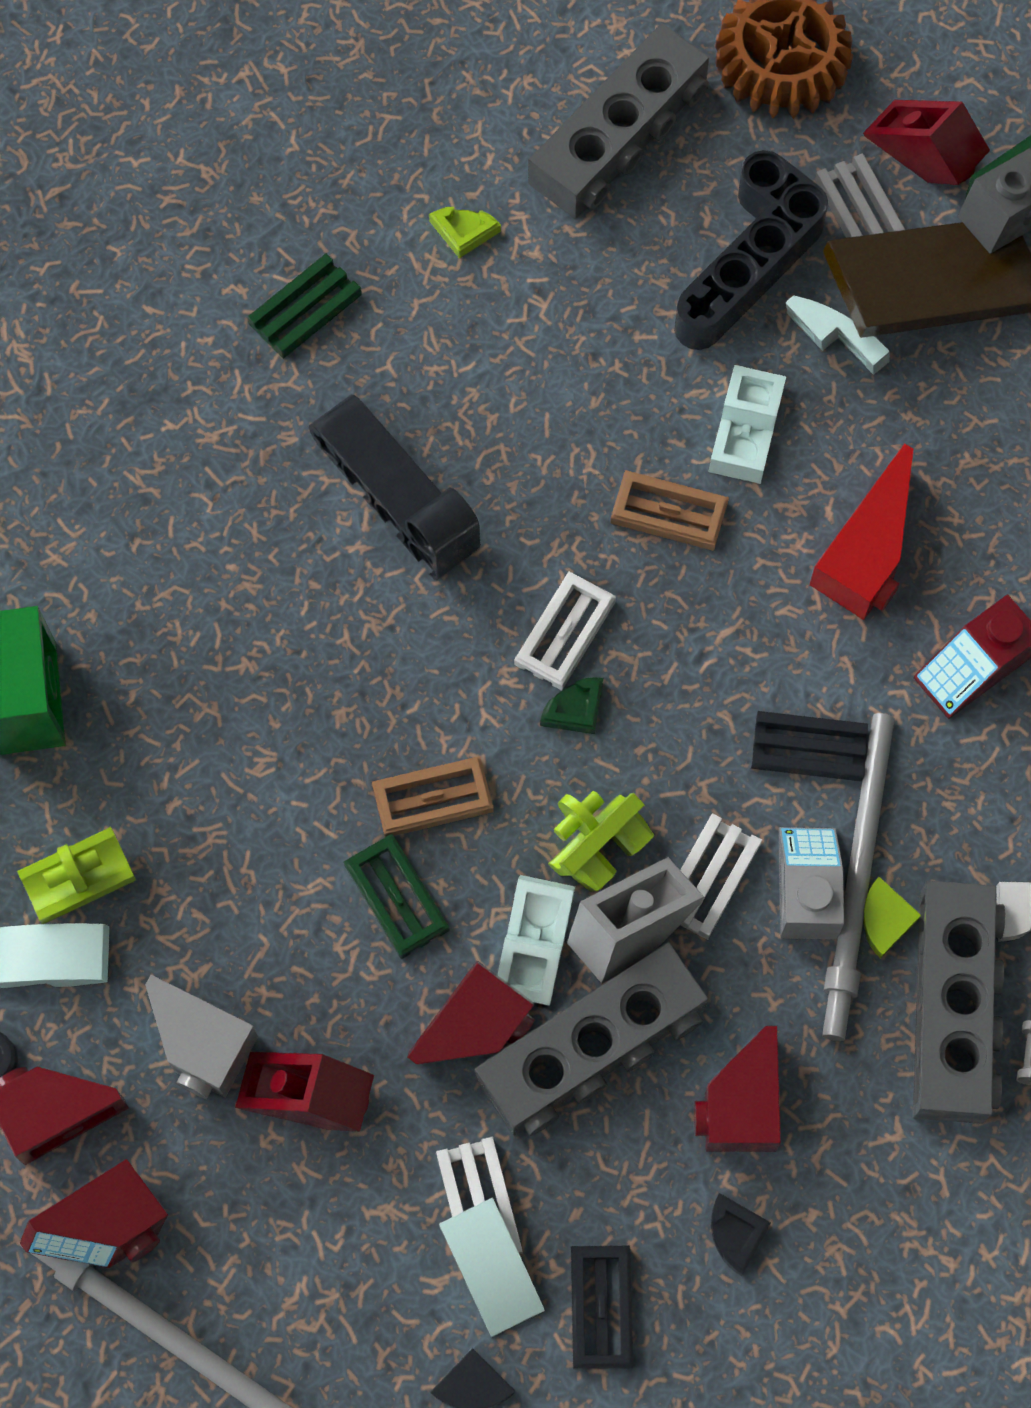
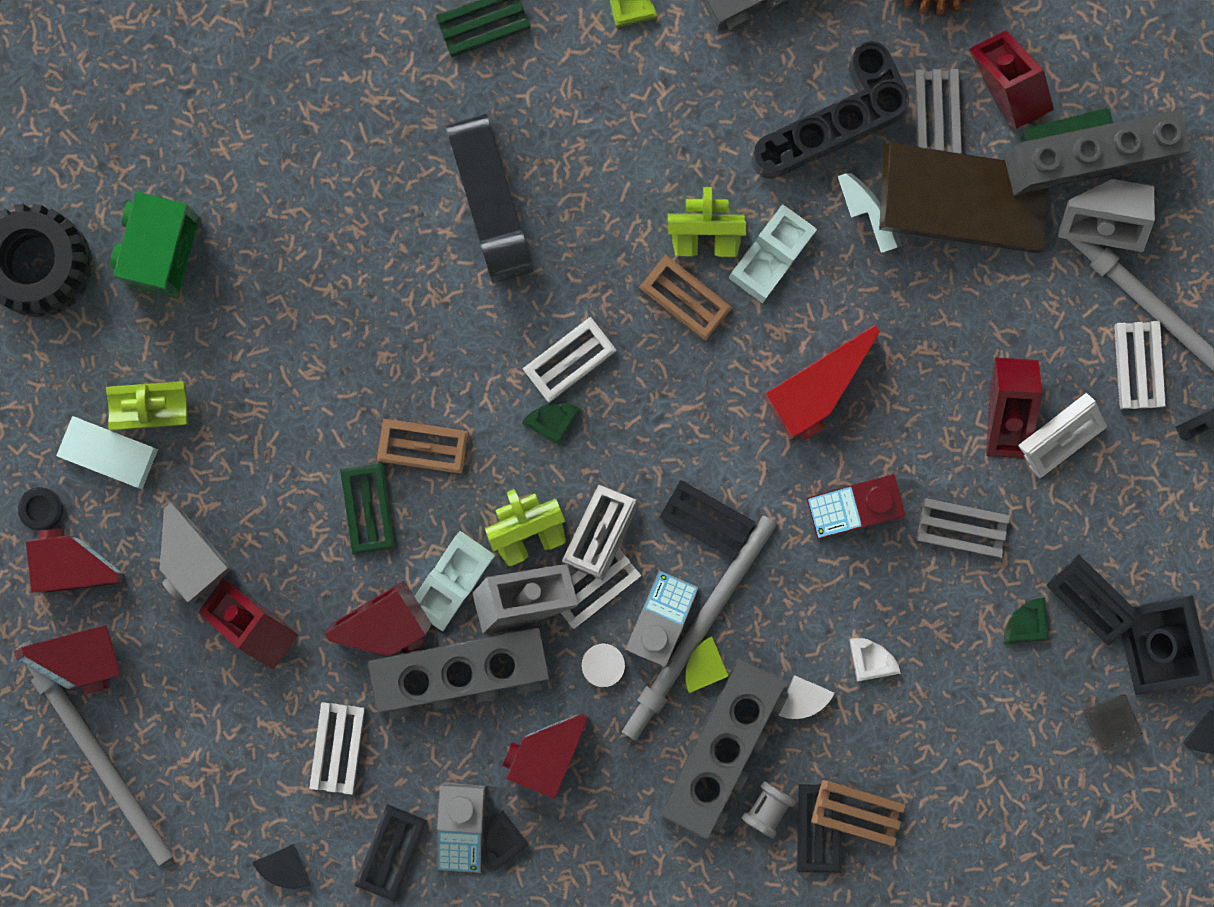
camera: 20 degrees right, 15 degrees up
(491, 1267) = (326, 796): light aqua slope -> none
(677, 1234) = (460, 827): none -> light grey slope
(684, 416) = (725, 227): none -> lime hips
(691, 849) = (615, 538): none -> light grey tile
(763, 965) = (603, 665): none -> white tile

